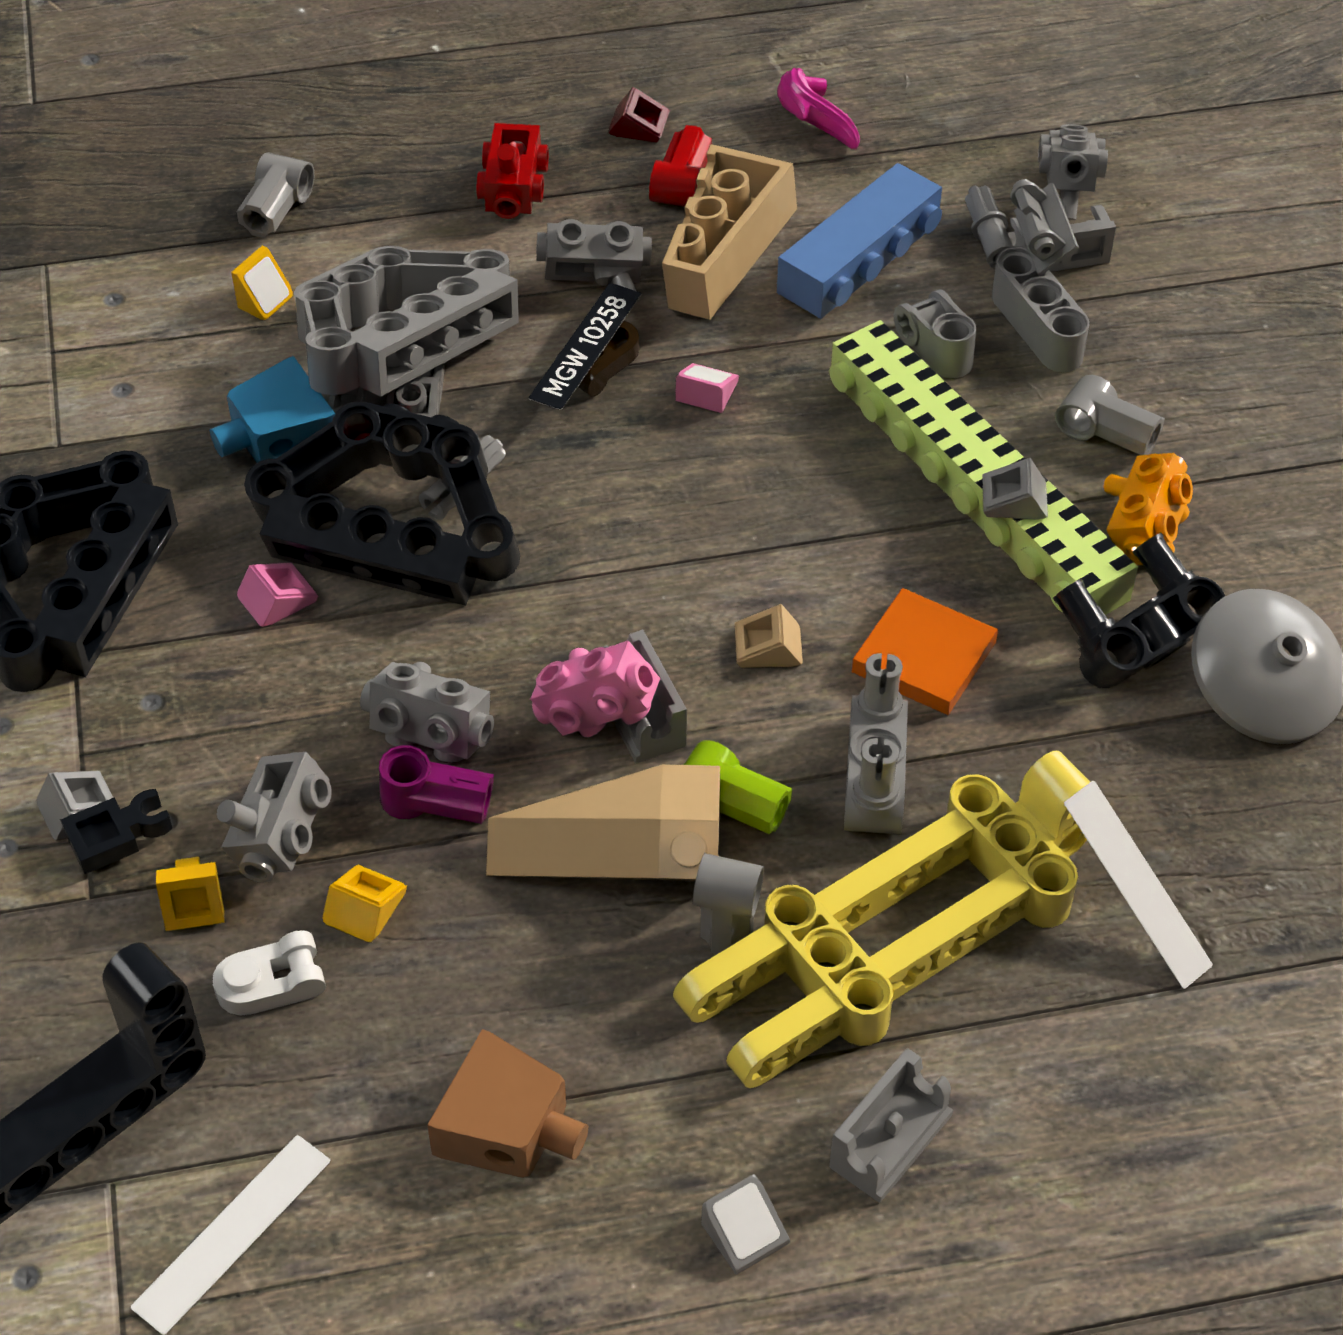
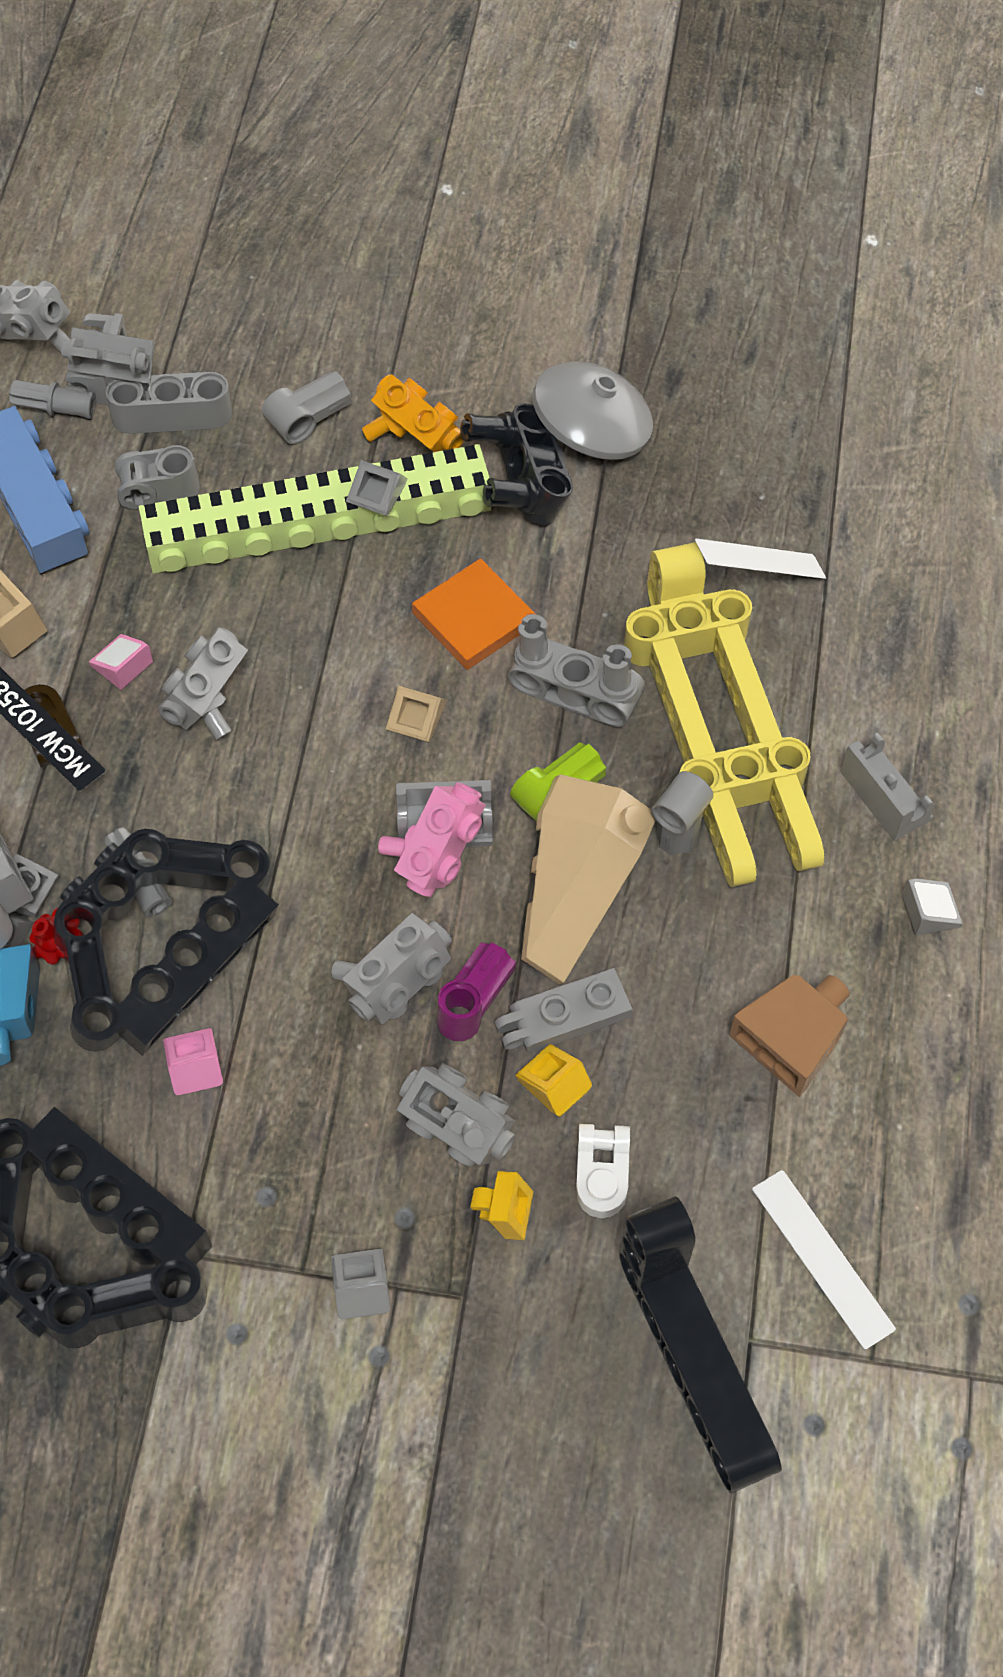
camera: 70 degrees left, 10 degrees up
(109, 833) = (412, 1259): black plate -> none
(451, 889) = (565, 1012): none -> light grey hinge
(696, 443) = (197, 689): none -> light grey brick

